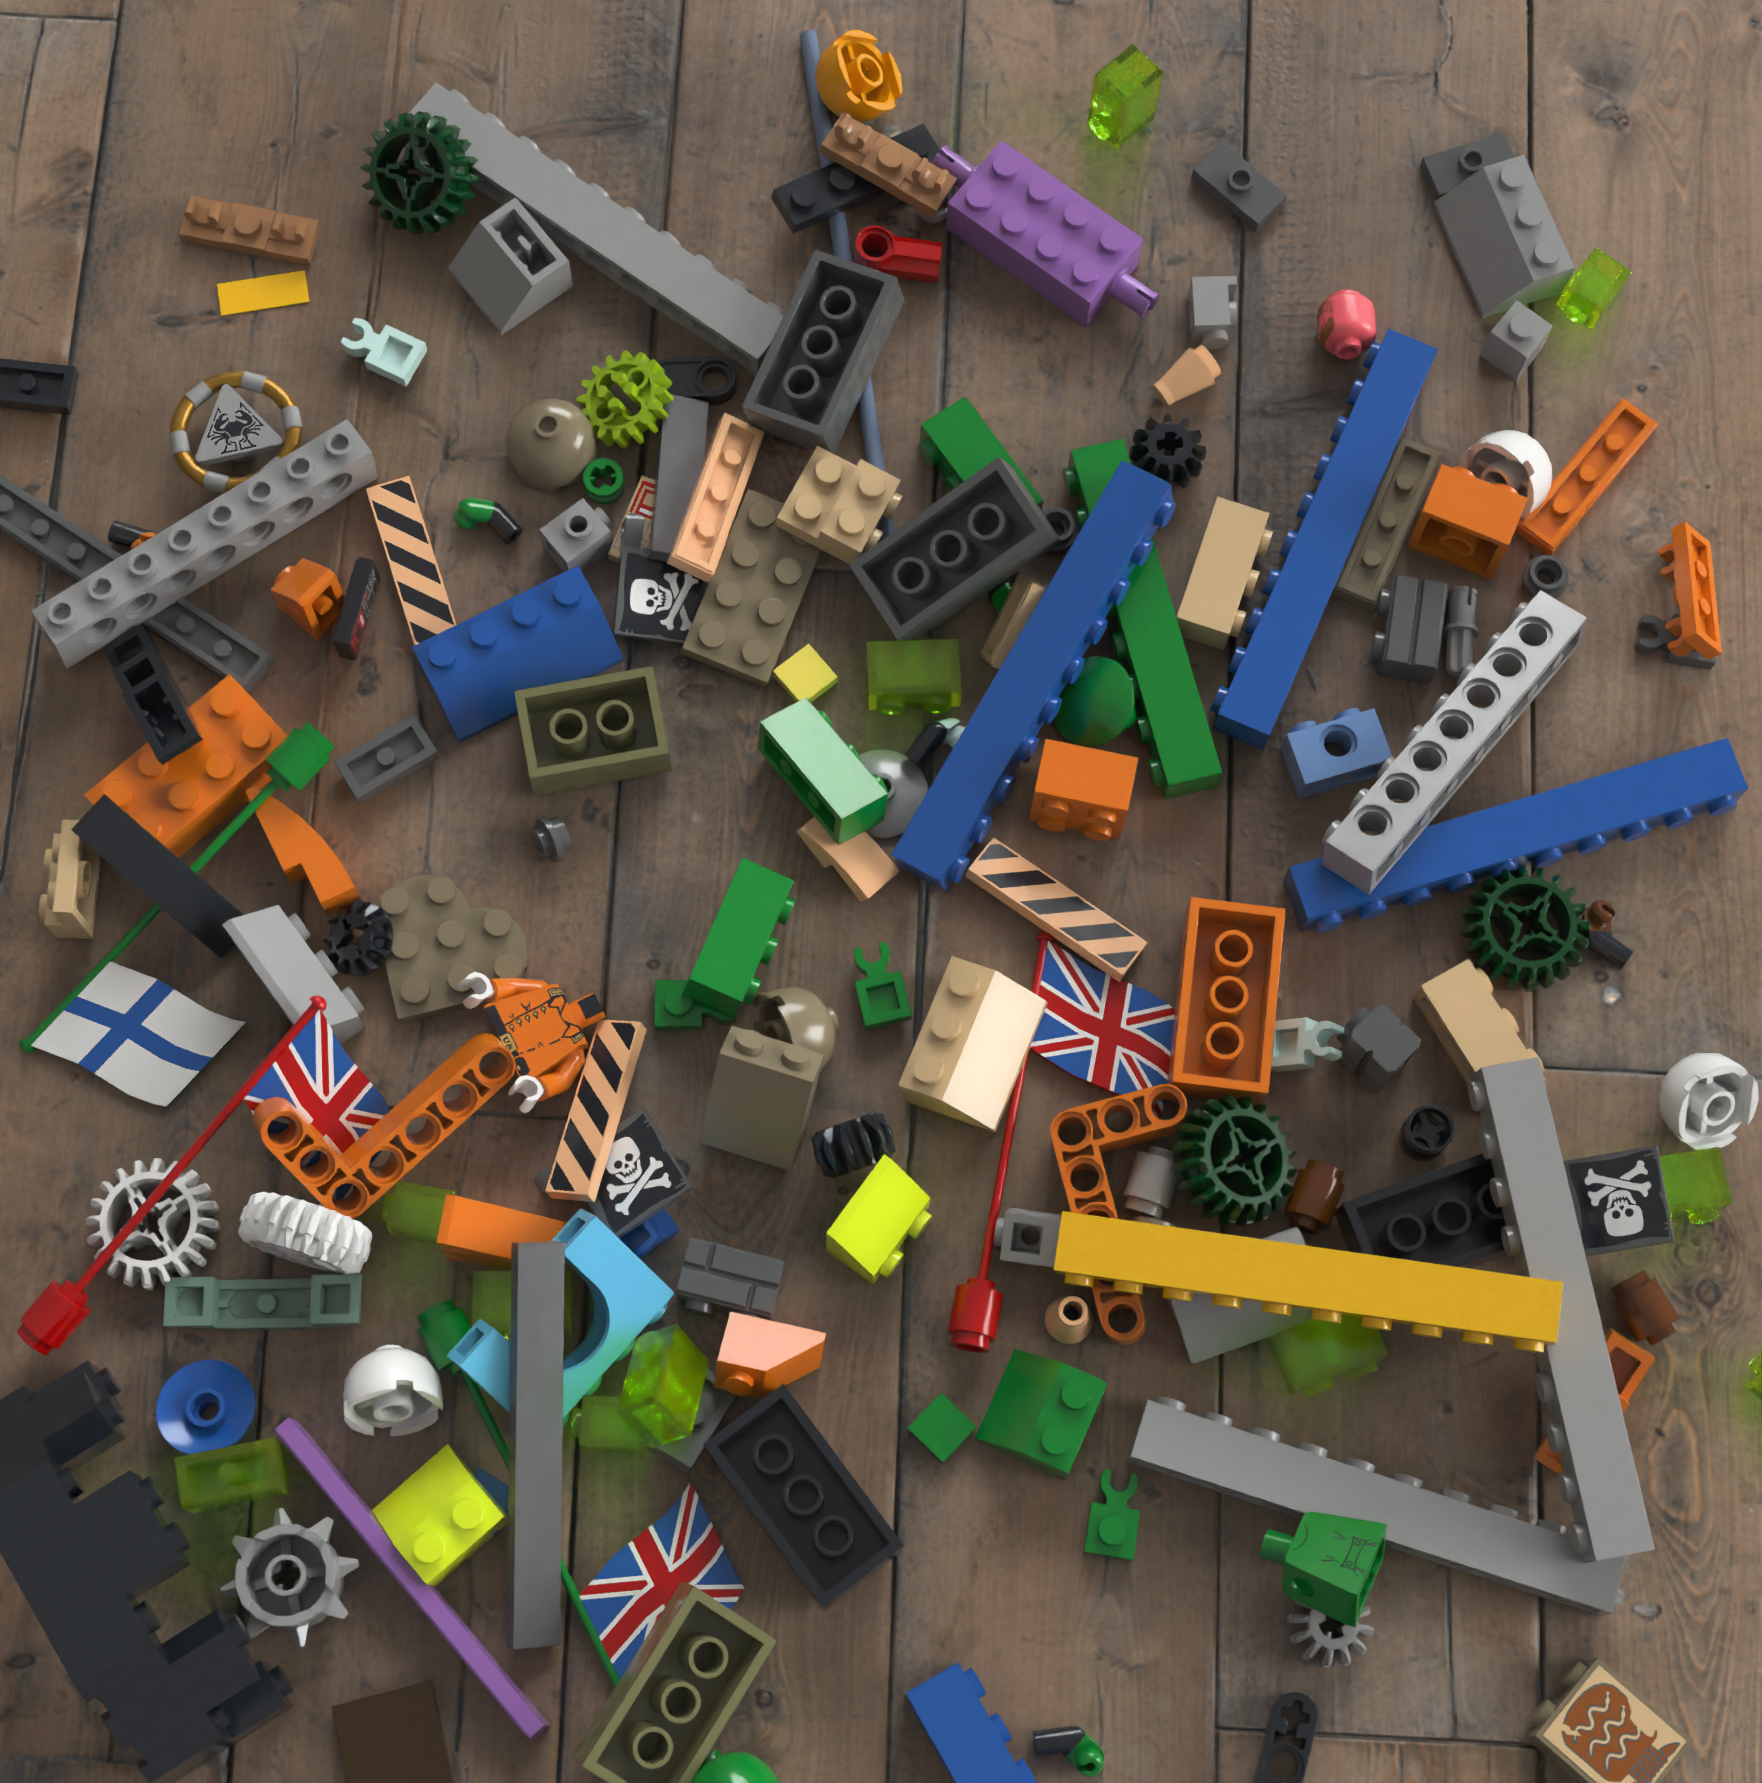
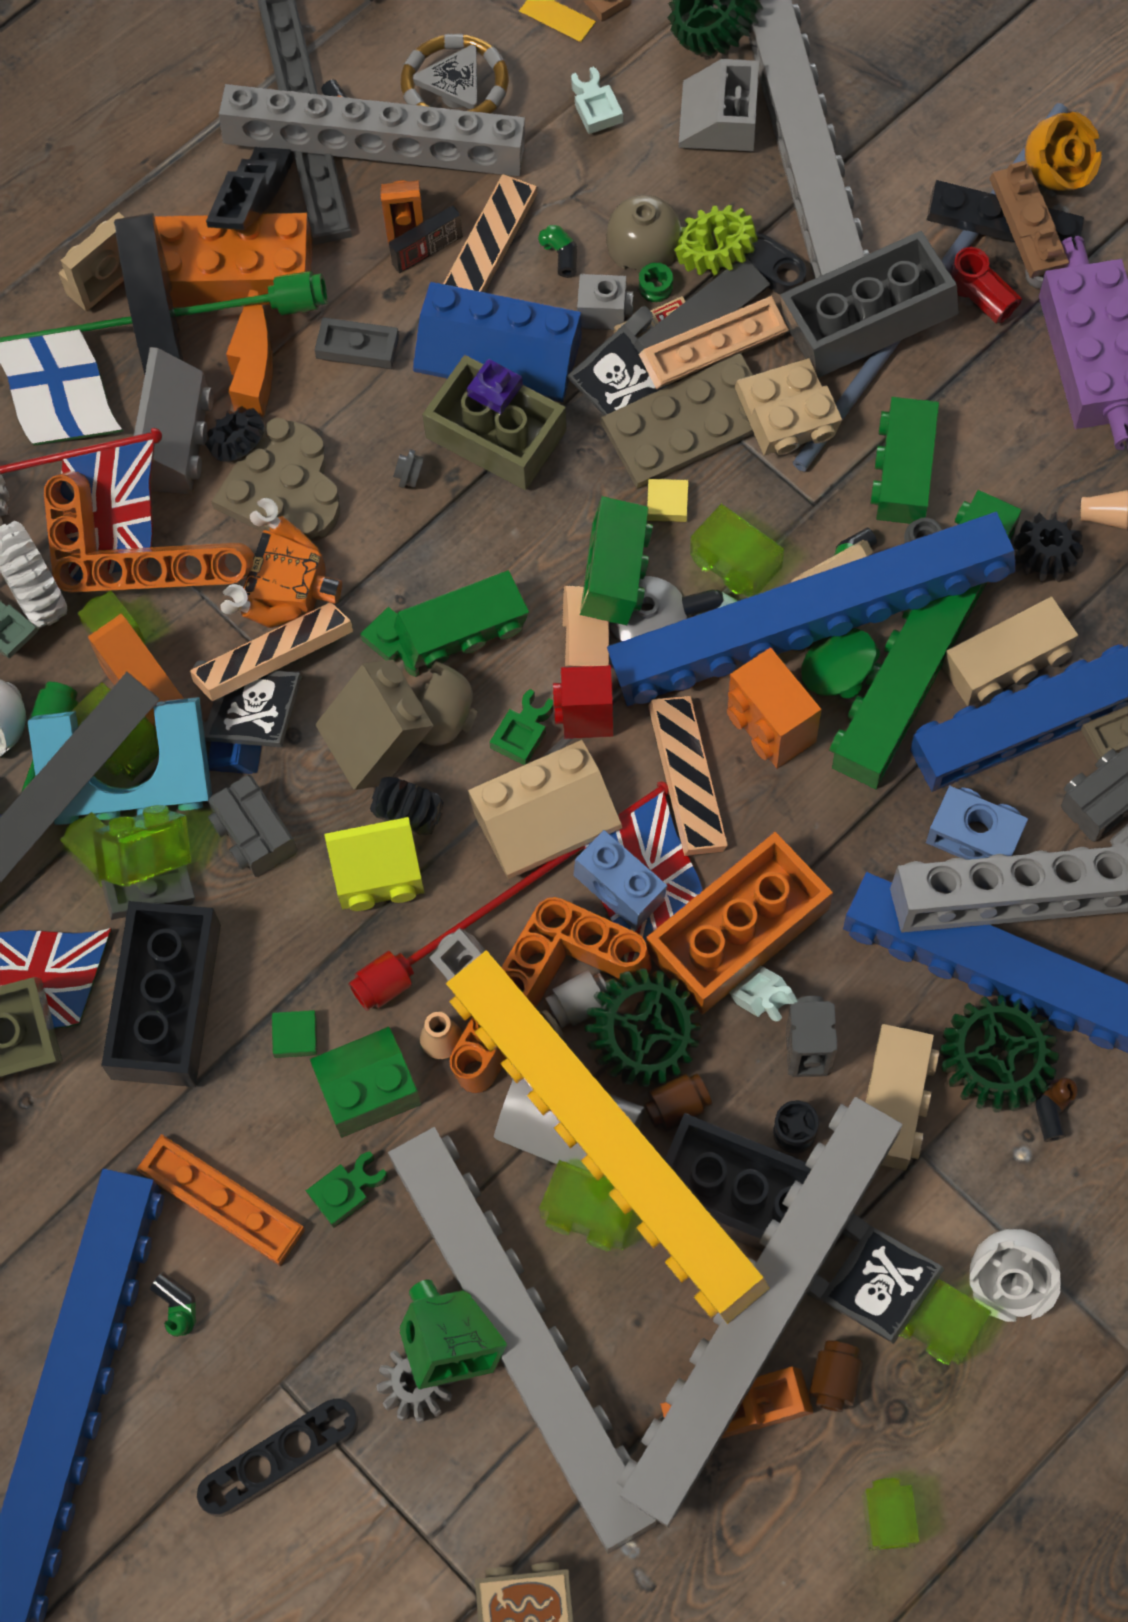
camera: 50 degrees right, 5 degrees down
(574, 698) = (494, 386): none -> dark purple tile
(765, 1354) = (226, 884): slope -> none
(921, 919) = (584, 702): none -> red brick
(954, 551) = (832, 489): dark grey brick -> none
(1017, 1625) = (221, 1200): none -> orange tile
(1096, 1050) = (619, 880): none -> medium blue brick

